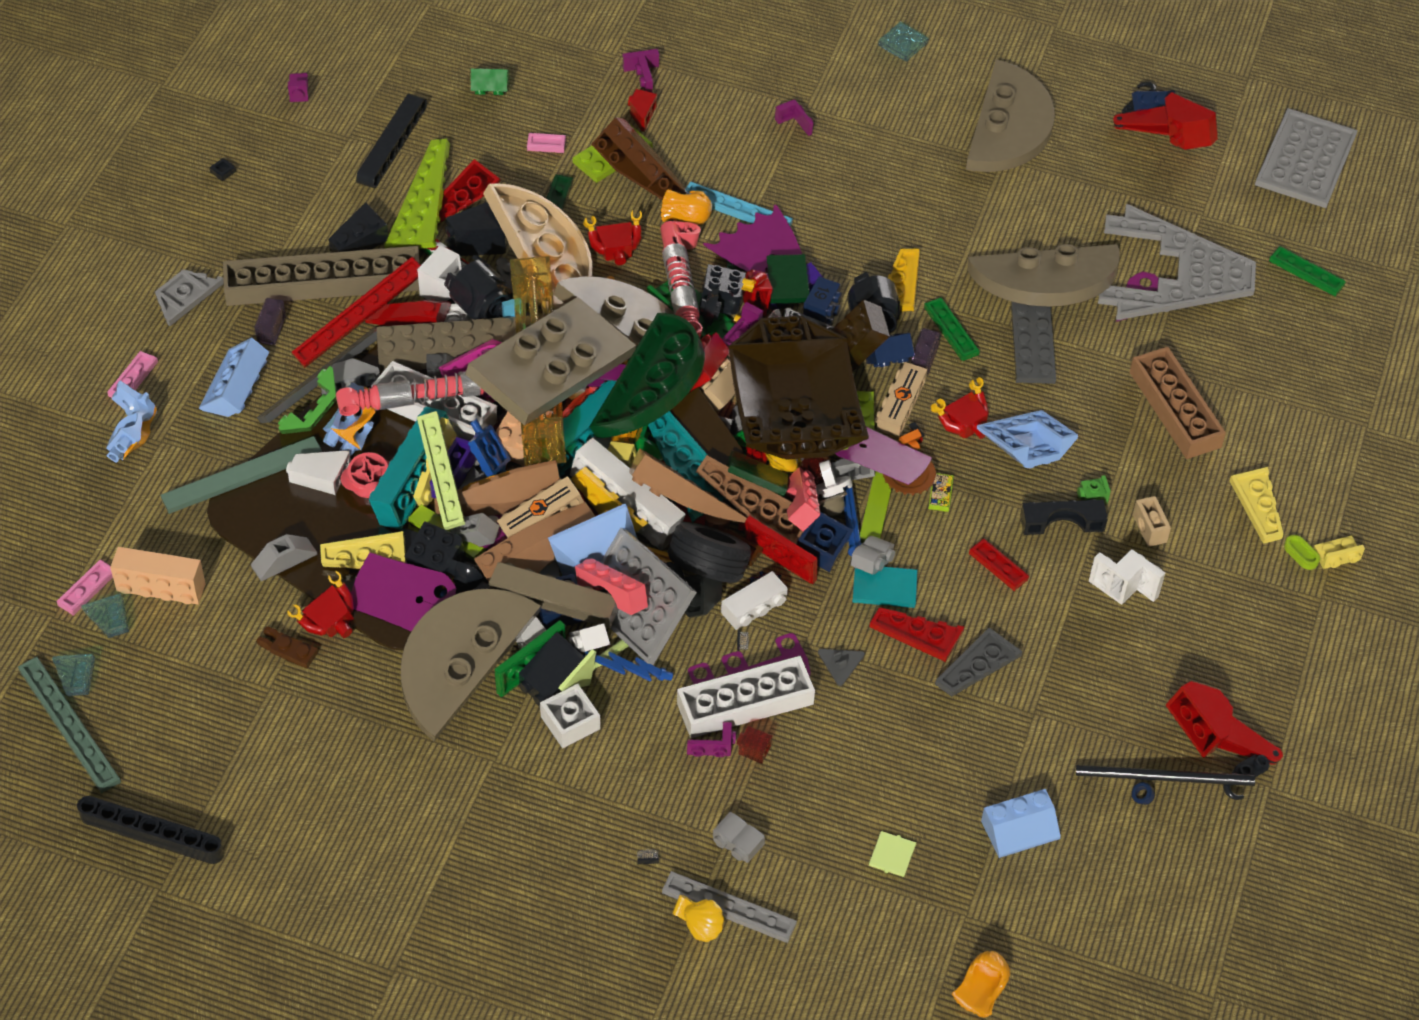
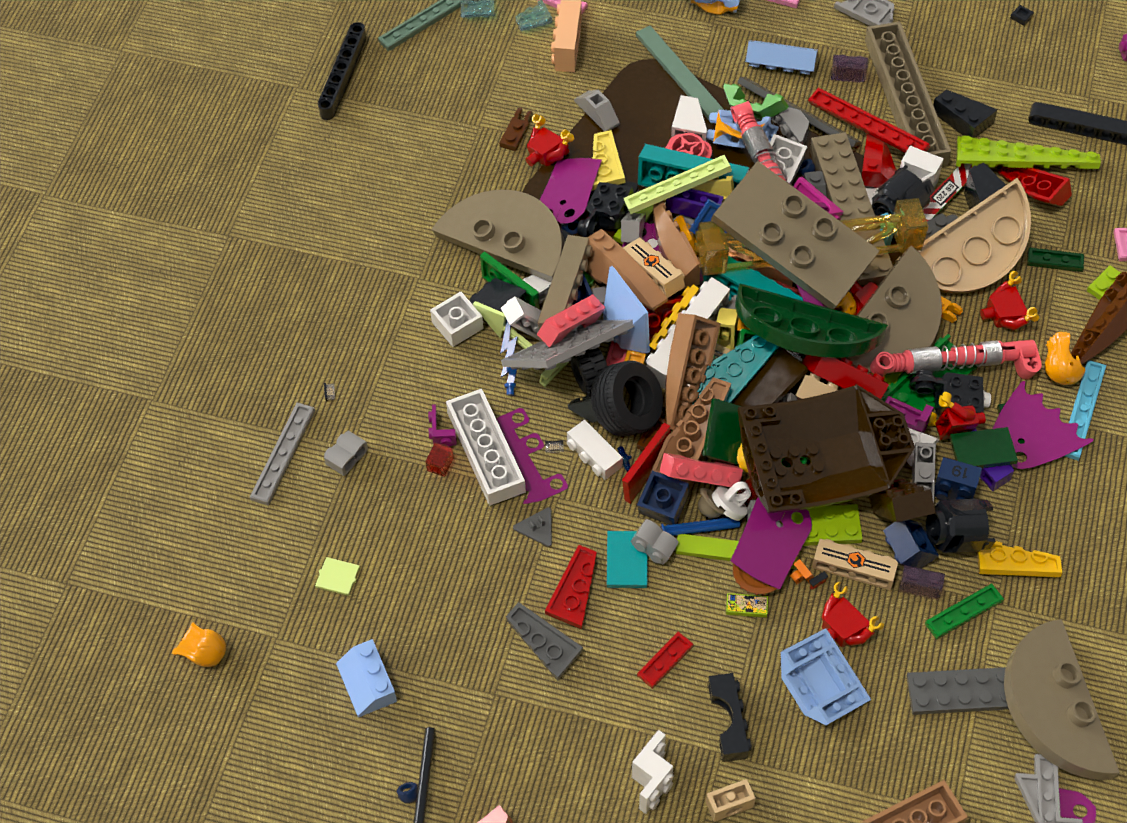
camera: 90 degrees right, 5 degrees up
(702, 918) = (265, 429): yellow animal -> none
(1094, 489) = (769, 753): bright green brick -> none

